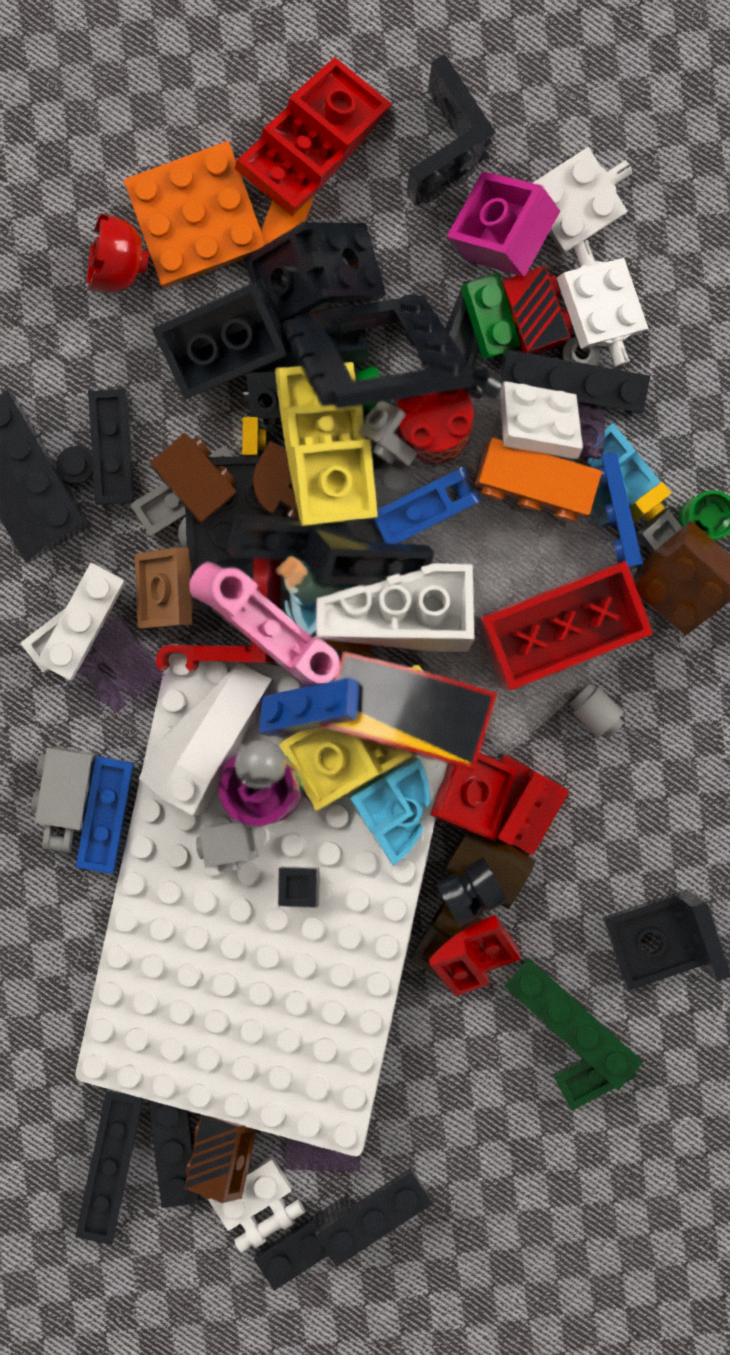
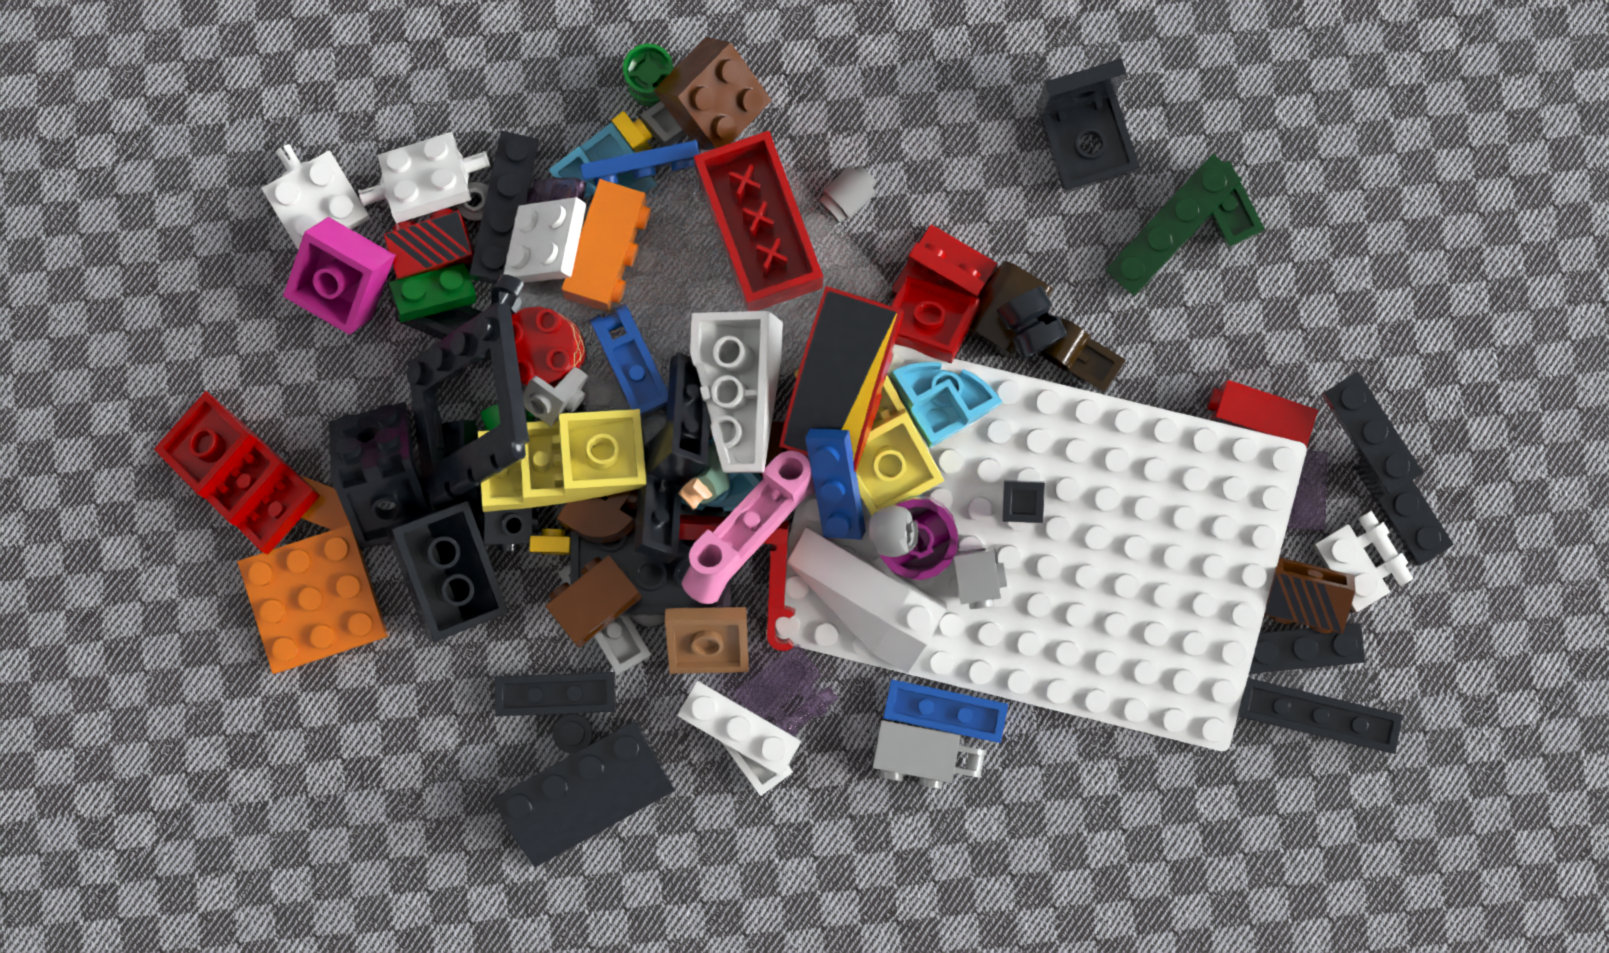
camera: 90 degrees left, 5 degrees down
(115, 256) = (354, 683): red cylinder -> none
(393, 1109) = (1261, 412): none -> red brick
(471, 127) = (234, 309): black bracket -> none
(471, 953) = (1098, 326): red slope -> none

